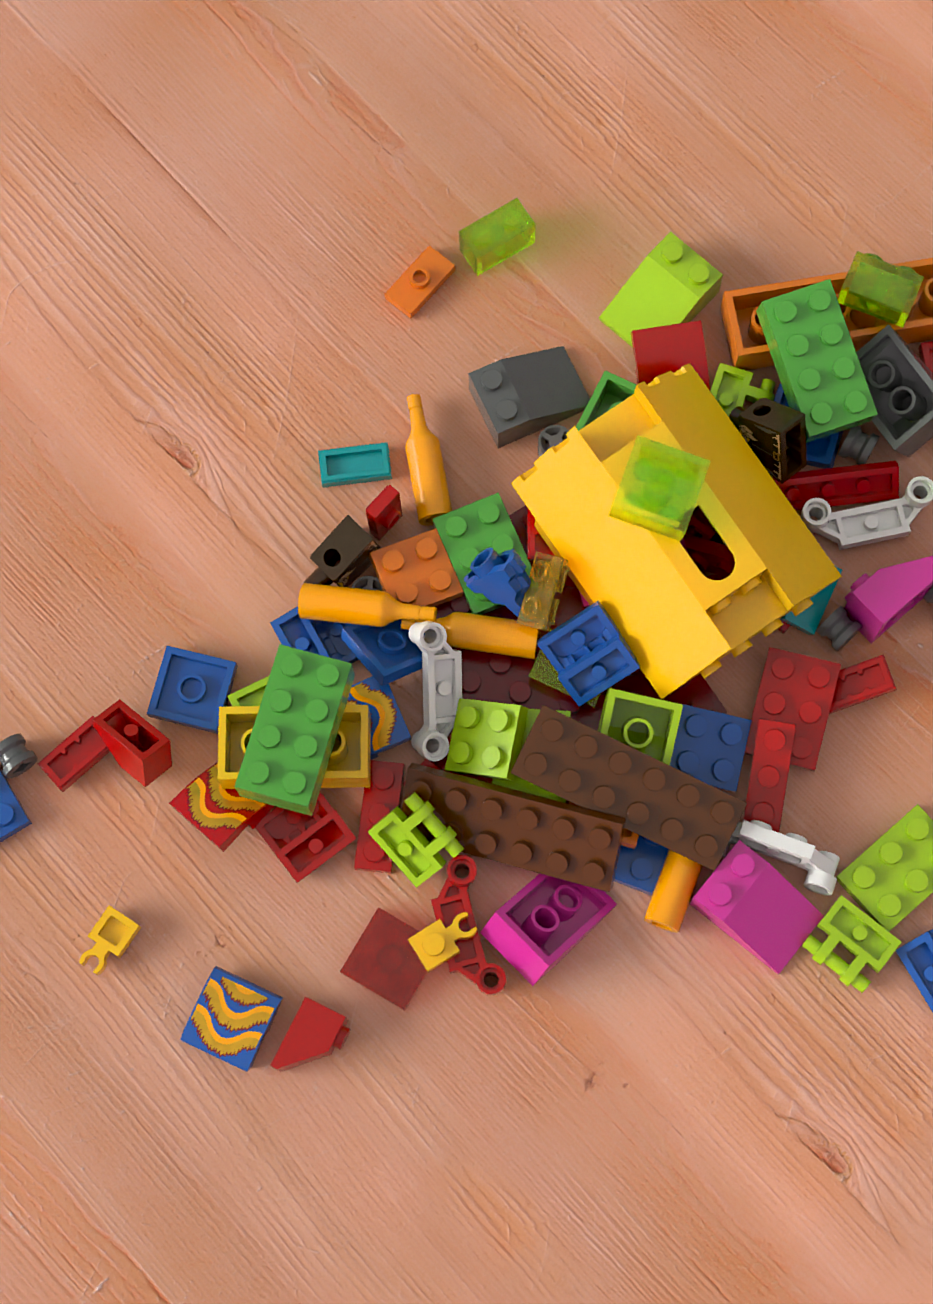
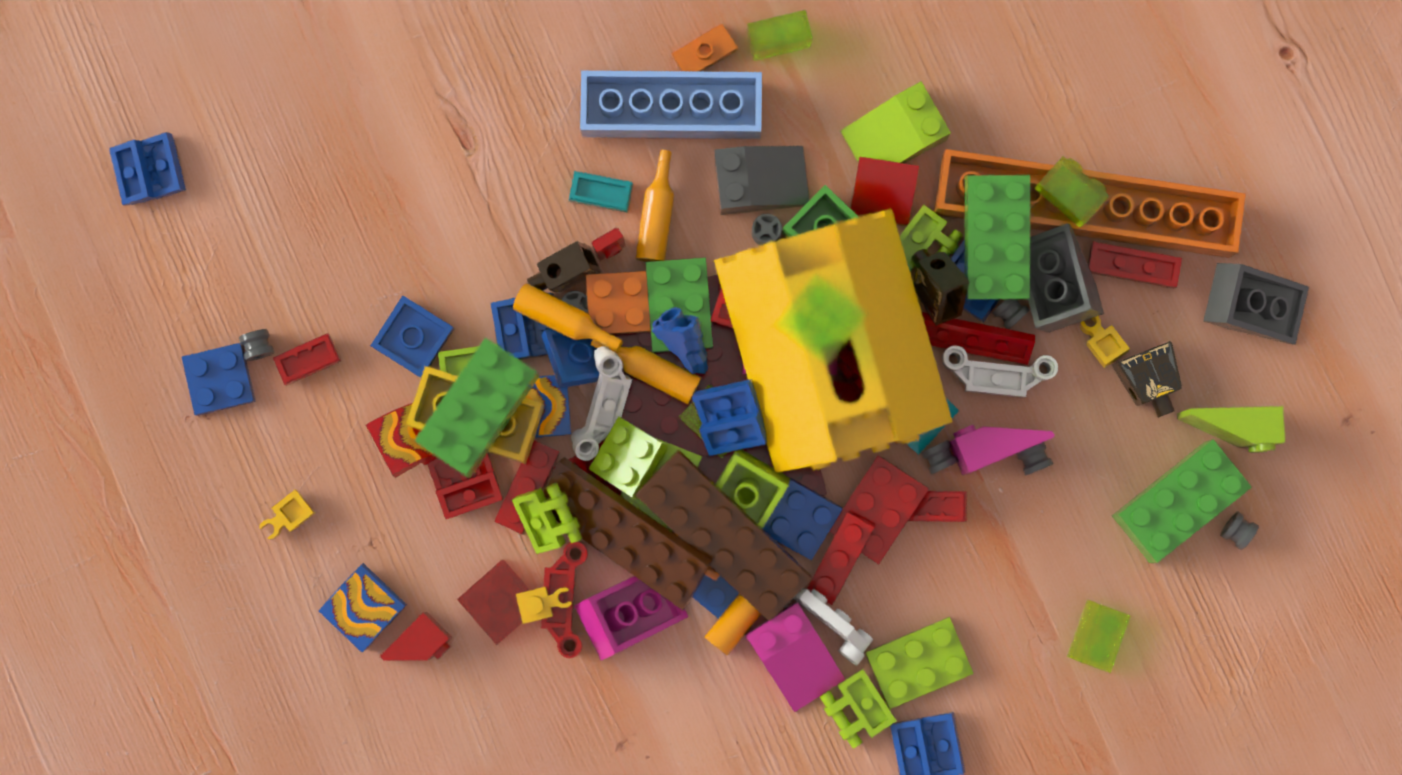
camera: 15 degrees right, 10 degrees up
(134, 742) = (352, 366): red slope -> none
(403, 343) = (671, 104): none -> light blue brick
(538, 604) = (704, 364): clear yellow hinge -> none

